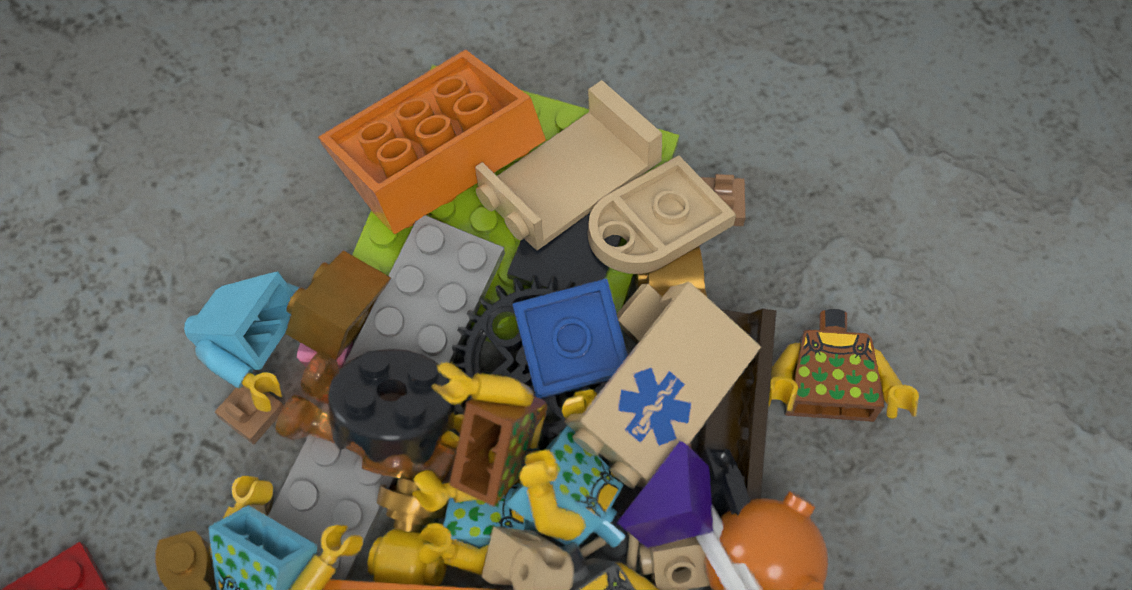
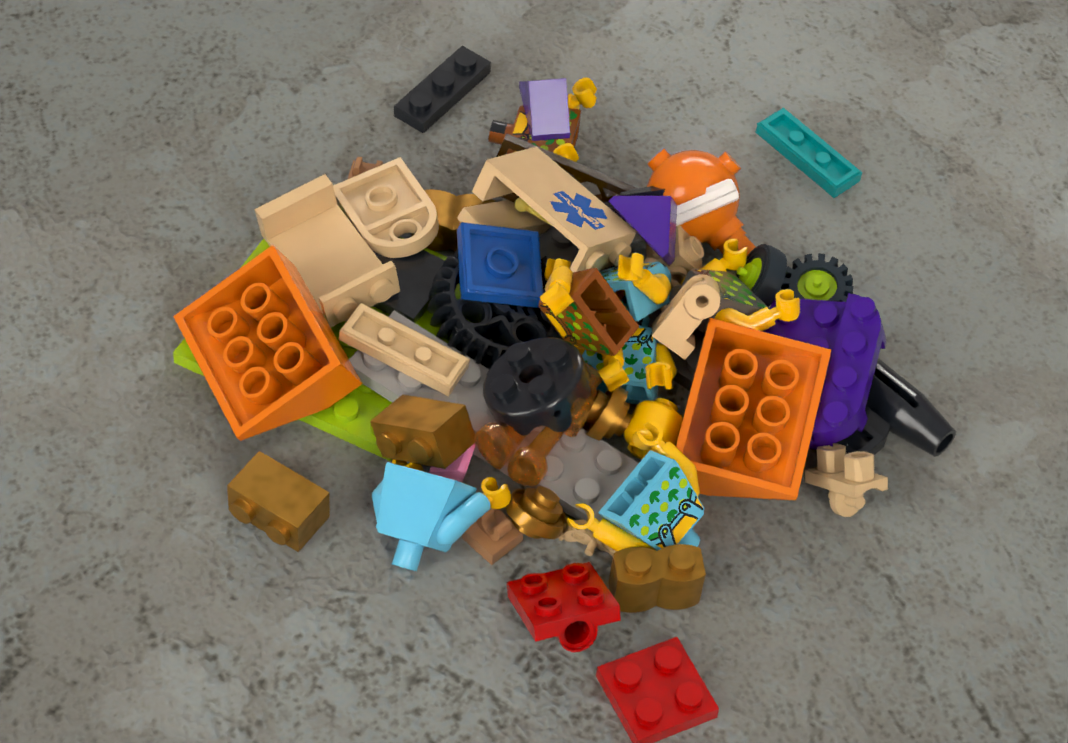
camera: 85 degrees left, 15 degrees down
(149, 492) = (564, 605): none -> red plate
(253, 193) = (278, 501): none -> pearl gold brick
(262, 452) = (537, 512): none -> pearl gold plate
(438, 263) = (404, 349): none -> tan tile
(866, 357) = (546, 108): none -> slope
(896, 255) = (442, 89): none -> black plate

